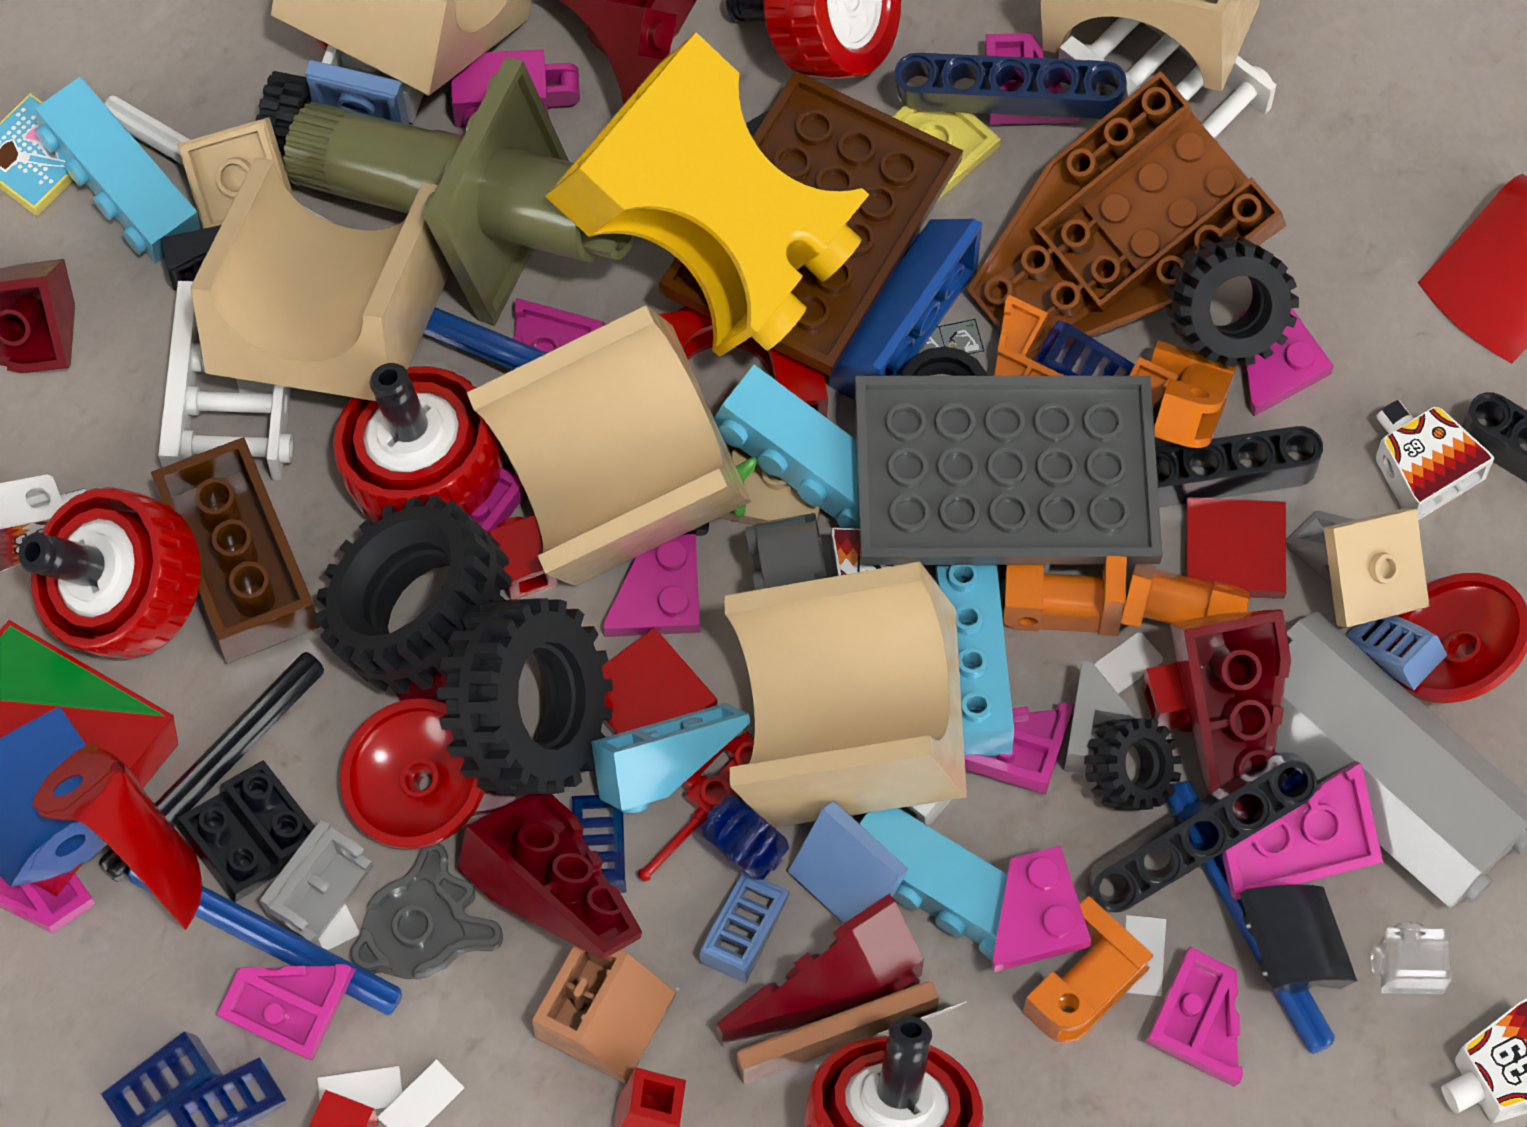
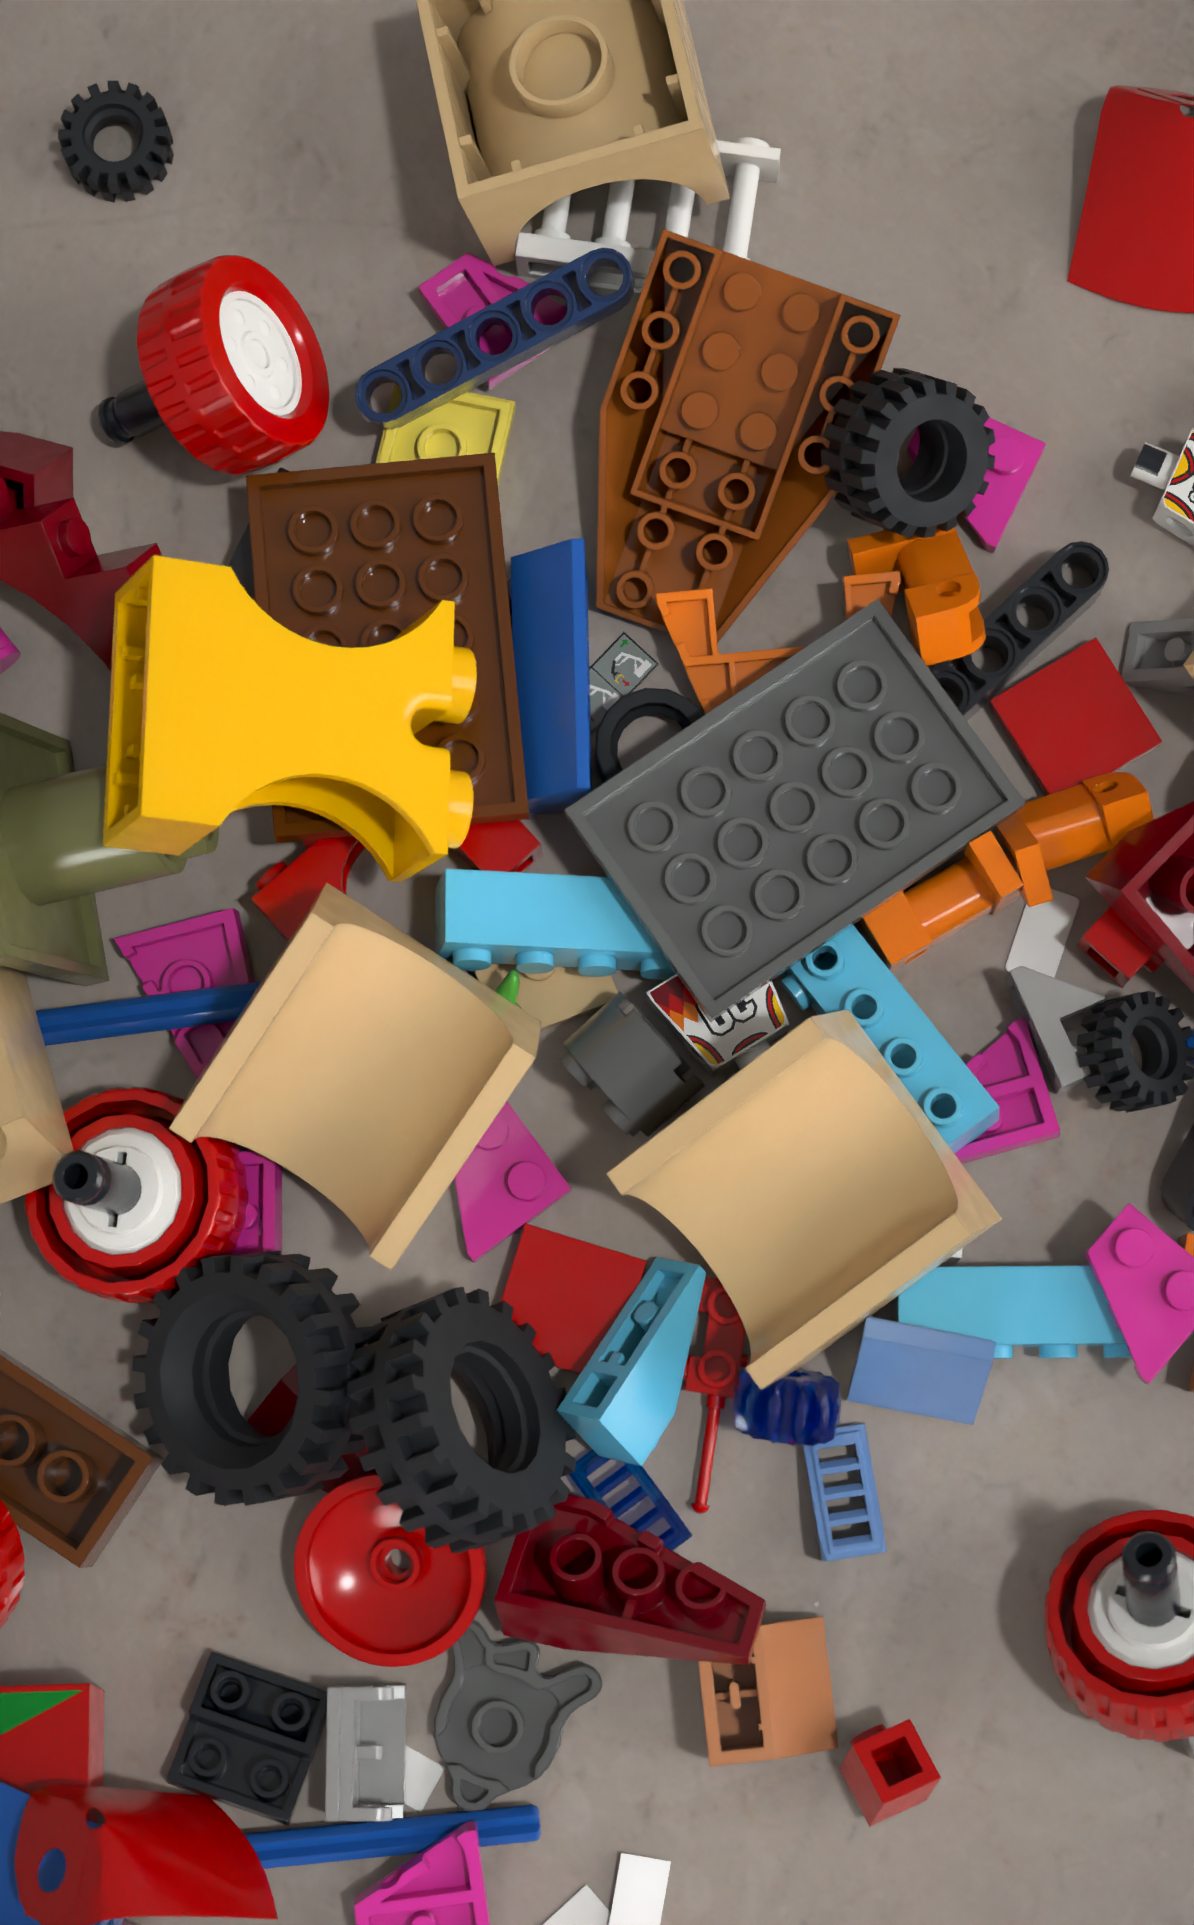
camera: 25 degrees left, 15 degrees up
(229, 748) = (166, 1645): black axle -> none
(522, 544) = (325, 1235): red brick -> none
(835, 1032) = (1020, 1548): nougat tile -> none
(864, 963) = (995, 1473): dark red wedge -> none
(926, 1017) = (1098, 1485): white sticker -> none
(1057, 339) = (749, 613): clear blue slope -> none

